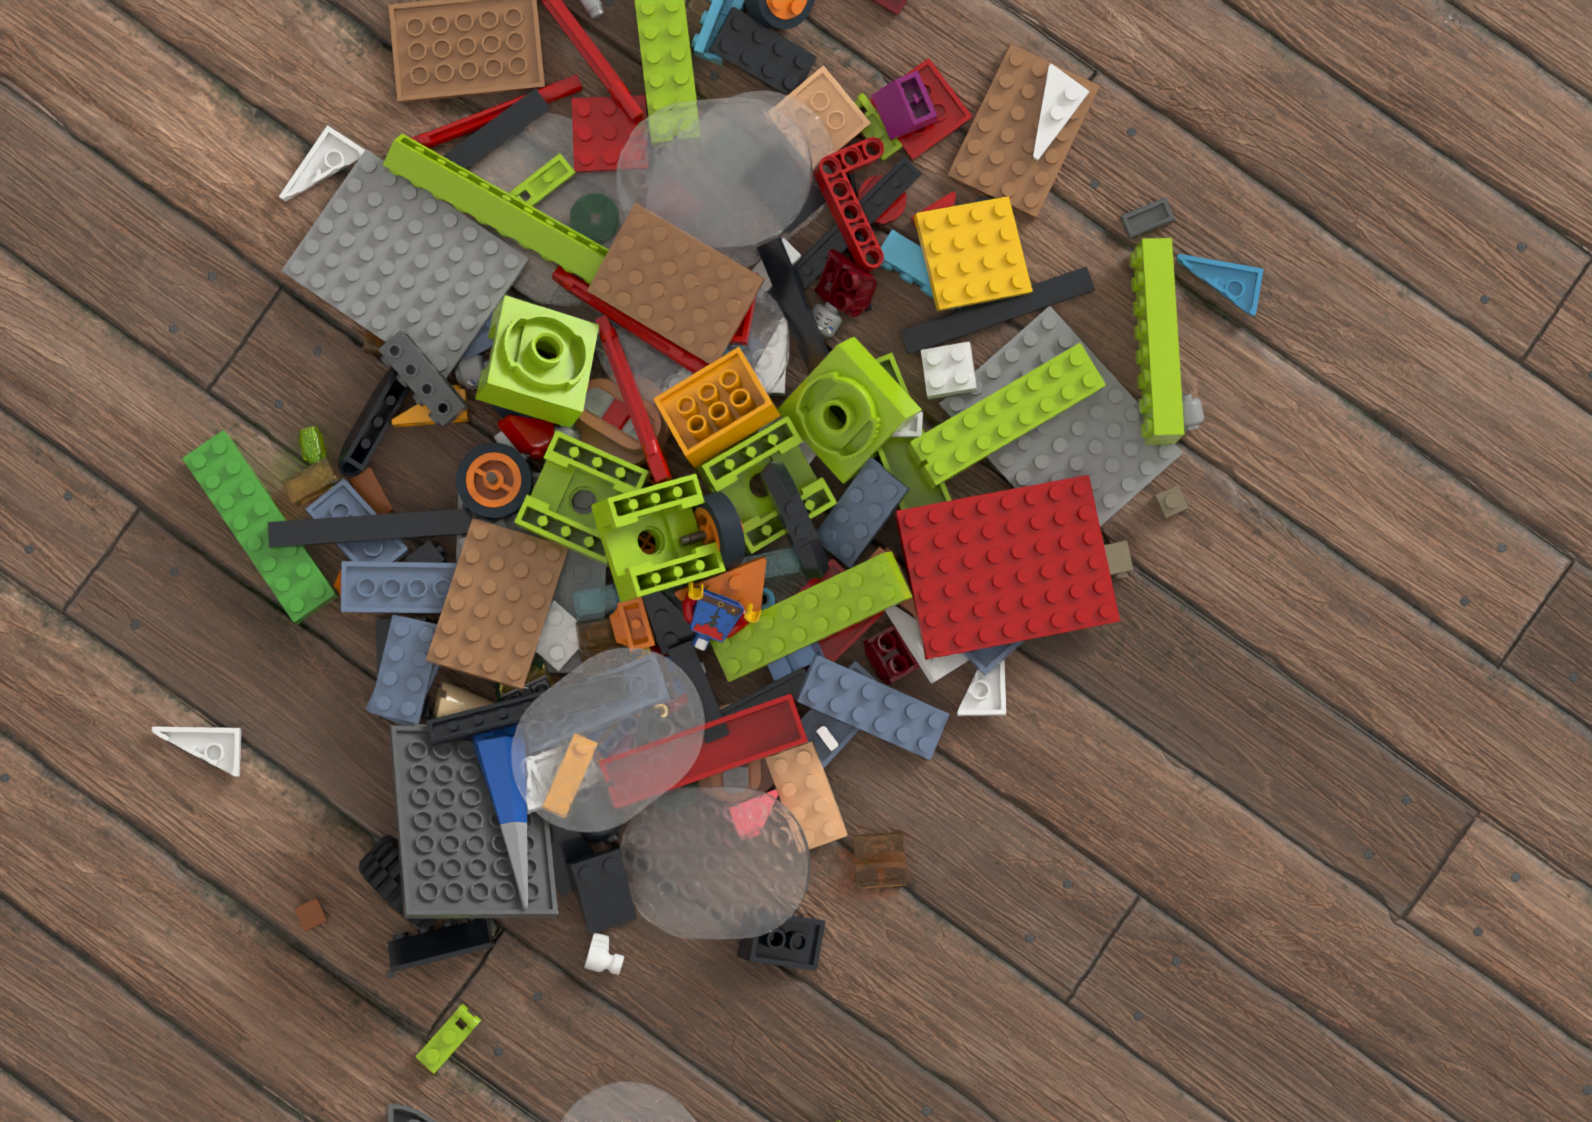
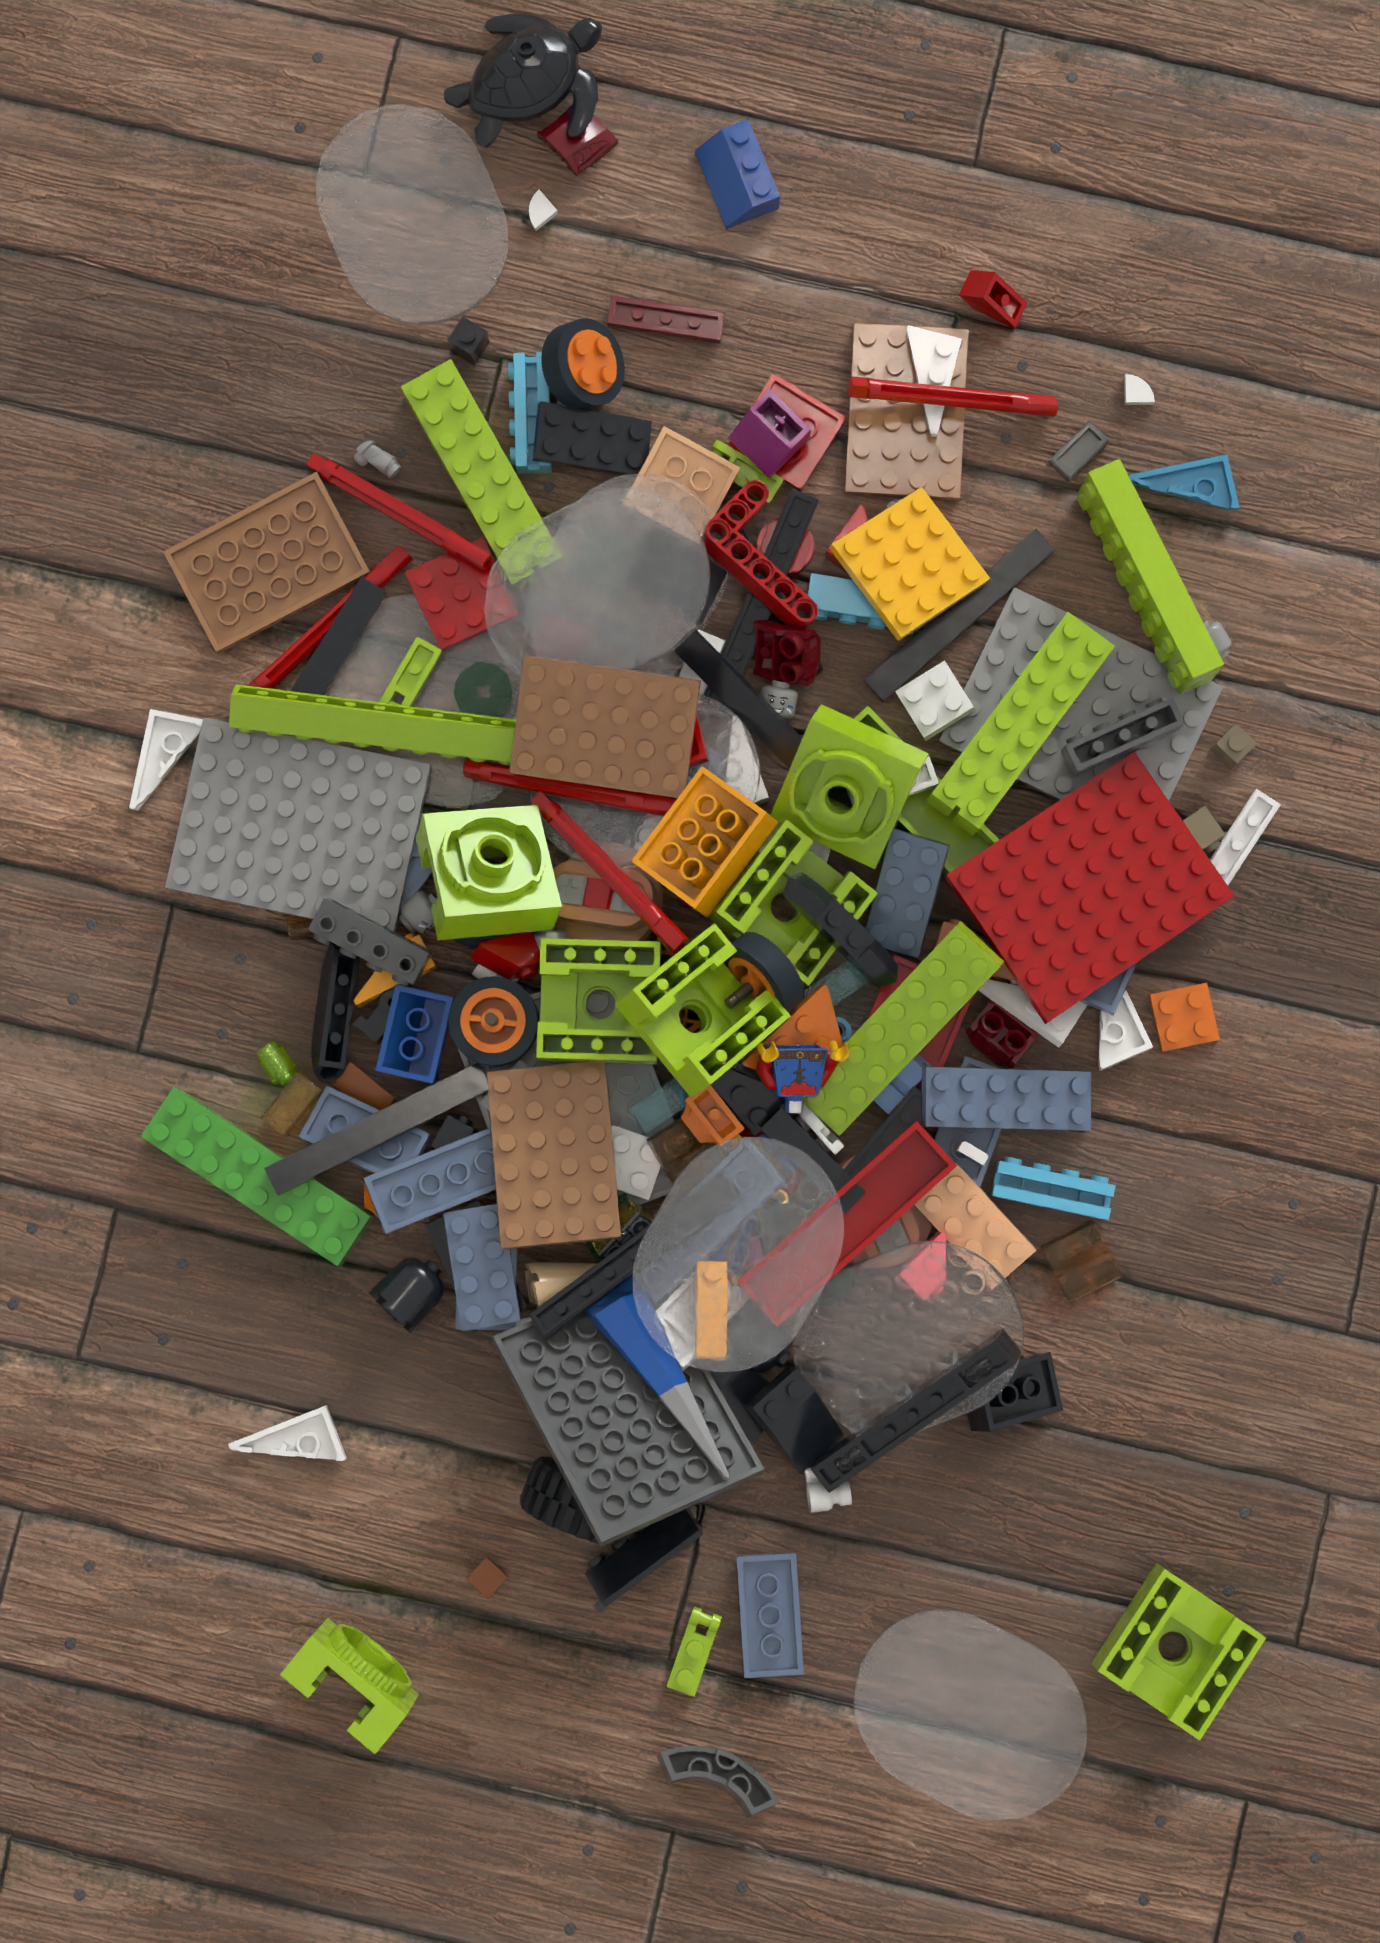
camera: 20 degrees left, 0 degrees up
(186, 940) = (365, 1668): none -> lime piece
(342, 665) = (409, 1291): none -> black cylinder
(410, 443) = (375, 1025): none -> black leg
(428, 466) = (415, 1035): none -> blue slope
(519, 1034) = (770, 1615): none -> sand blue plate
(697, 918) = (915, 1409): none -> black piece
(718, 680) = (826, 1138): none -> white wing
(880, 794) = (1051, 1189): none -> medium azure brick
(1041, 701) = (1183, 1017): none -> orange plate
(1062, 135) = (952, 396): none -> red piece
(1083, 459) = (1123, 736): none -> dark grey brick
(1129, 68) = (993, 297): none -> red slope
(1149, 577) = (1243, 834): none -> white tile
(1214, 189) = (1137, 391): none -> white tile

